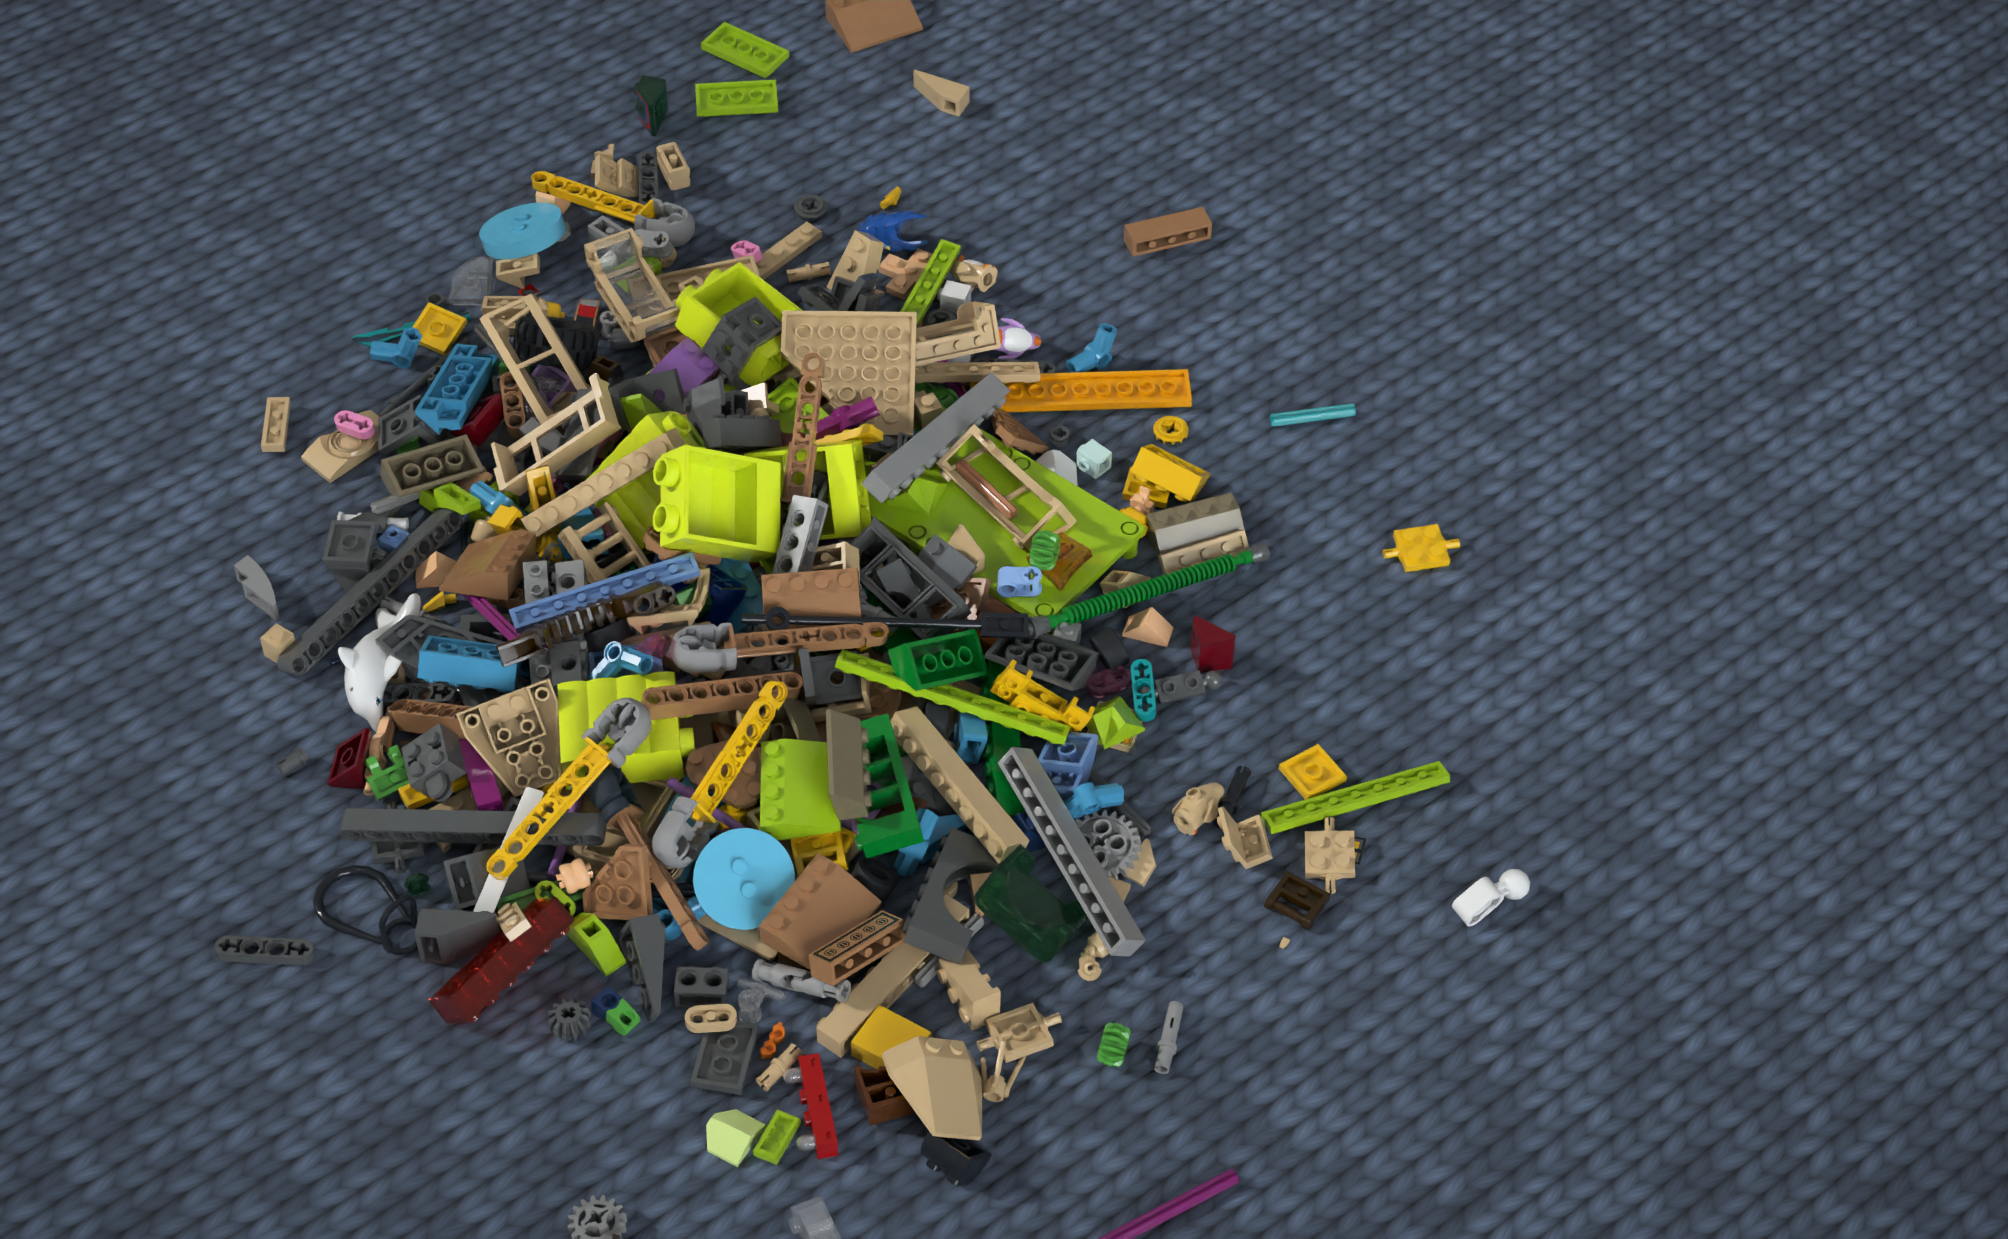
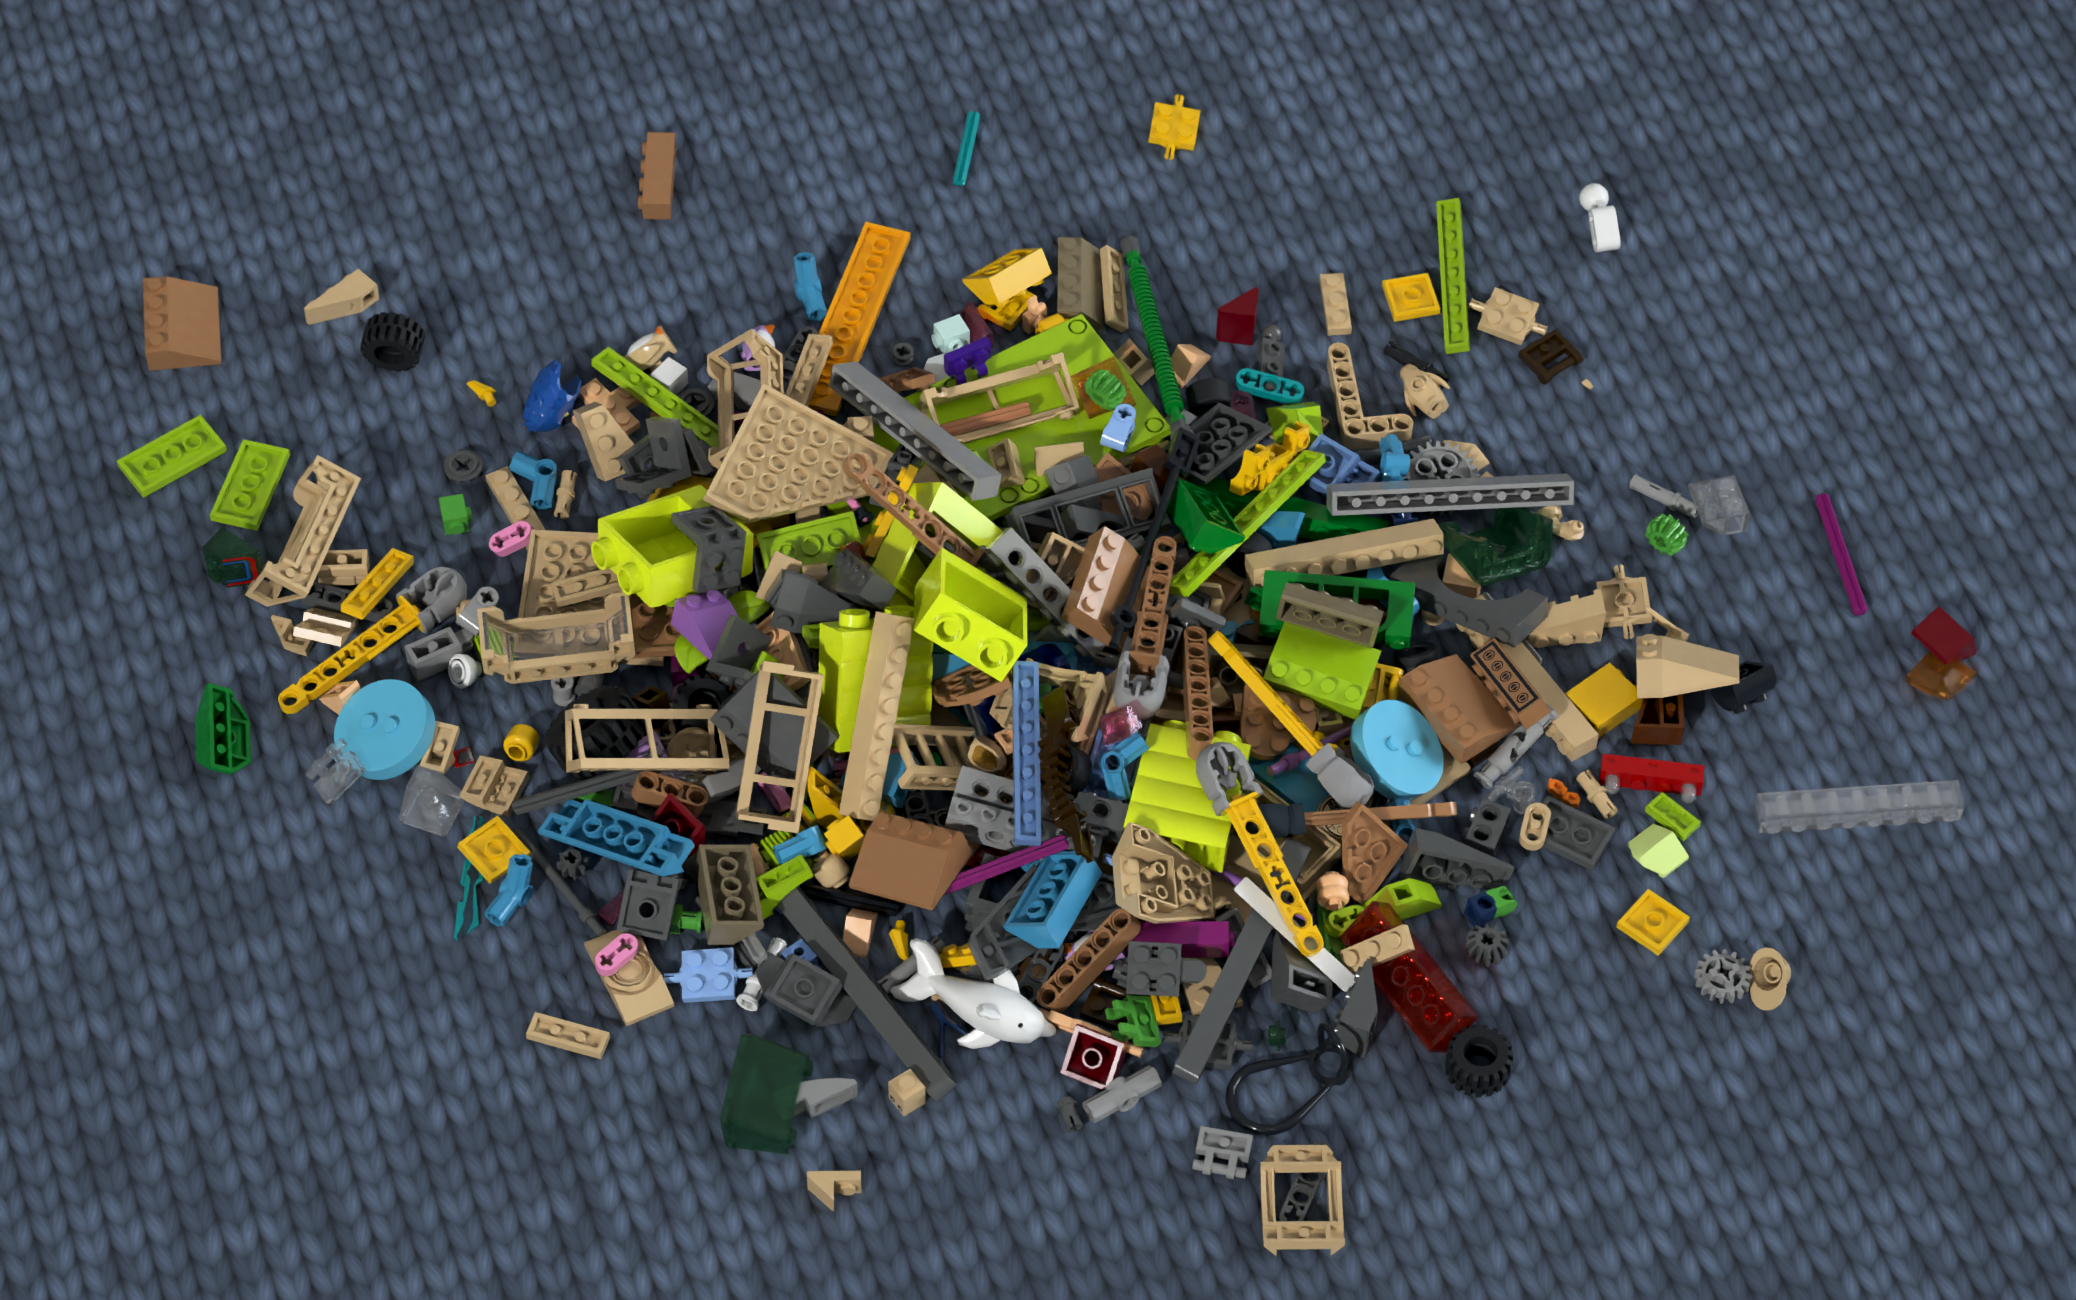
camera: 70 degrees left, 5 degrees up
(171, 622) = (826, 1183): none -> tan slope
(202, 950) = (1302, 1234): none -> tan wedge
(246, 545) = (763, 1095): none -> clear green windscreen
(289, 879) = (1223, 1145): none -> light grey plate
(321, 790) = (1122, 1094): none -> light grey piece
(360, 489) = (708, 975): none -> light blue plate
(436, 299) = (443, 839): dark grey plate -> none
(437, 1059) = (1475, 1078): none -> black tyre
(481, 217) = (339, 776): none -> clear plate
(488, 150) = (222, 731): none -> green wedge
(588, 311) = (535, 707): slope -> none
(643, 1150) = (1653, 922): none -> yellow plate
(665, 188) = (377, 583): none -> yellow plate
(688, 134) = (311, 535): none -> tan windscreen
(757, 214) = (455, 514): none -> bright green brick
(818, 253) = (543, 474): none -> dark azure piece
(847, 417) = (857, 506): magenta piece -> none
(902, 124) = (392, 341): none -> black tyre
(948, 519) = (1006, 461): none -> tan slope
(1035, 451) = (970, 355): none -> dark purple plate
(1111, 476) = (975, 323): none -> clear pink slope
(1134, 765) = (1355, 430): none -> tan beam
(1165, 424) = (936, 256): yellow gear -> none
(1173, 1082) = (1720, 505): none -> clear slope
(1245, 839) = (1473, 367): tan bracket -> none
(1276, 719) = (1335, 304): none -> tan plate

